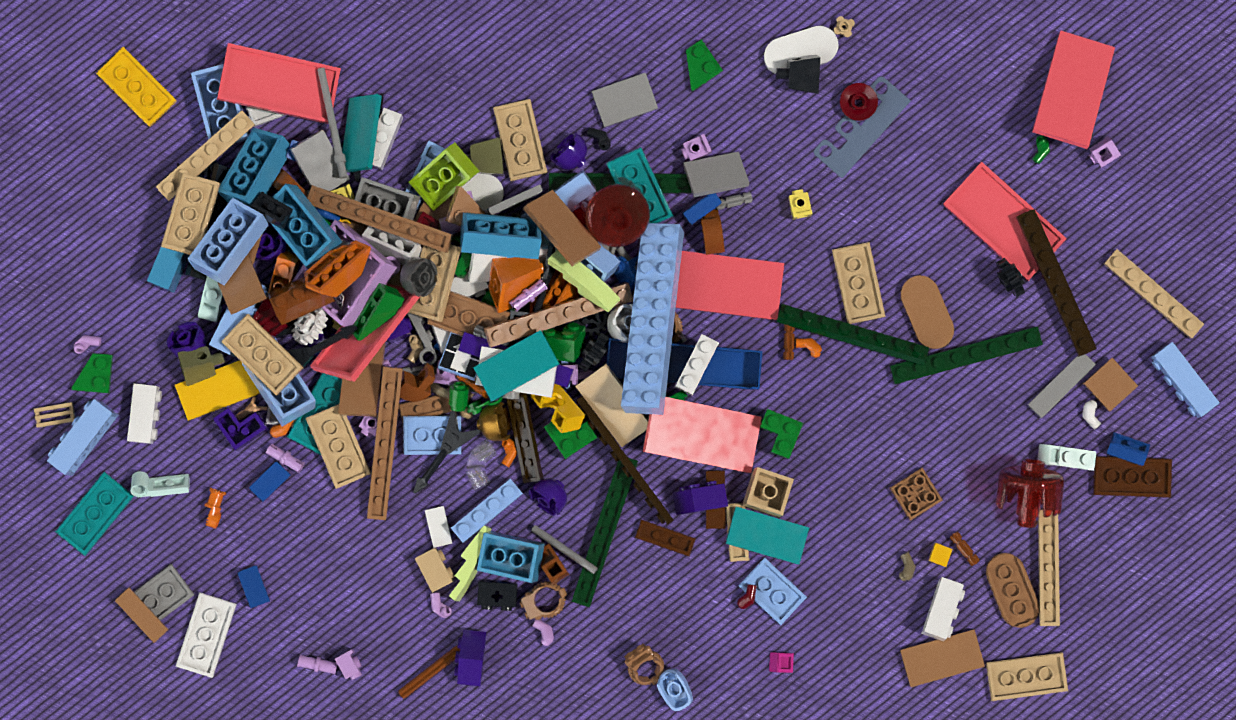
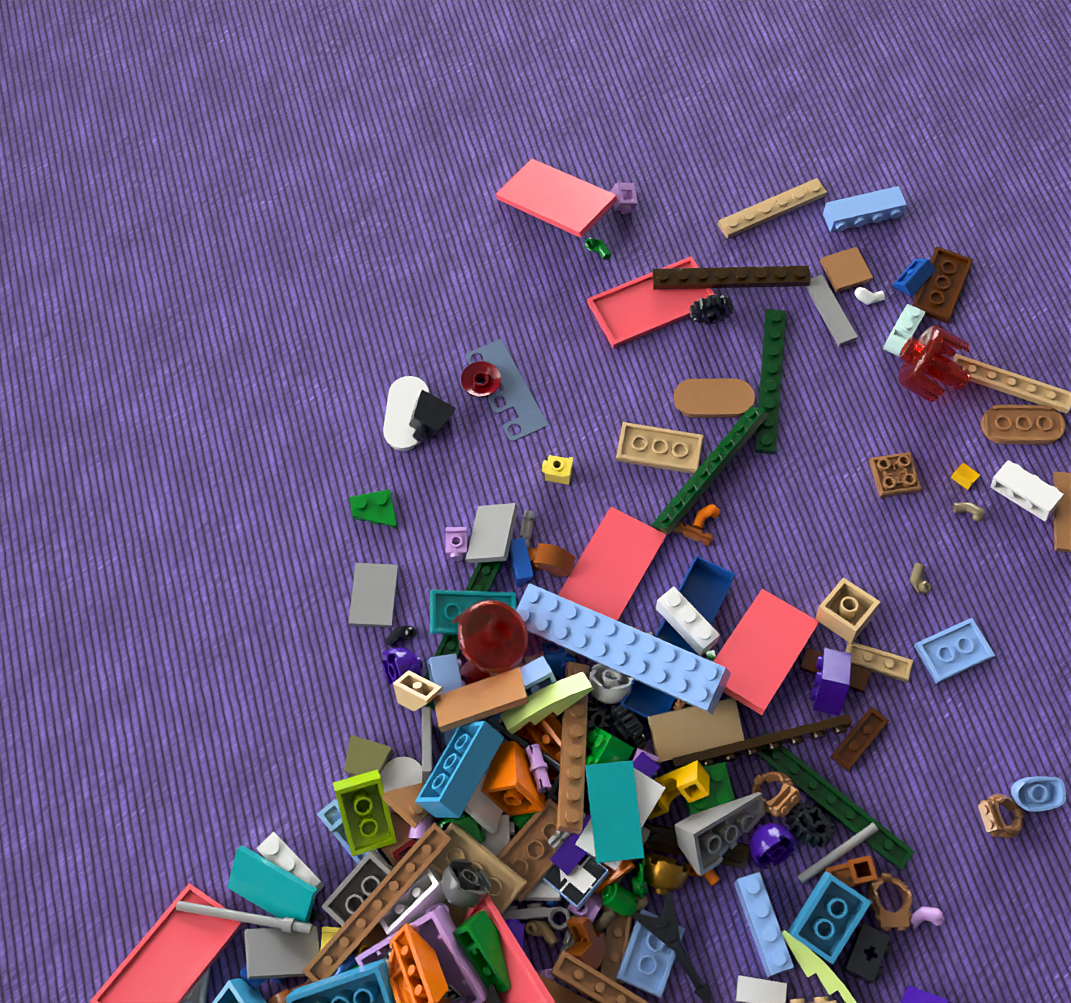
camera: 65 degrees left, 20 degrees down
(476, 464) = (704, 915): clear cylinder -> none
(520, 140) = (364, 717): tan tile -> none
(536, 446) = (715, 830): none -> light grey wedge
(552, 173) = (415, 691): none -> tan slope
(577, 520) = (810, 824): none -> black gear
(590, 495) = (785, 800): none -> medium nougat piece
(748, 598) = (957, 676): dark red arm -> none
(767, 535) = (892, 631): teal tile -> none
(781, 662) = (1036, 672): dark pink slope -> none
(786, 431) = (788, 569): green brick -> none
(822, 542) = (917, 581): none -> dark tan arm
(844, 31) = (404, 371): tan plate -> none
(964, 548) = (966, 451): dark orange axle -> none

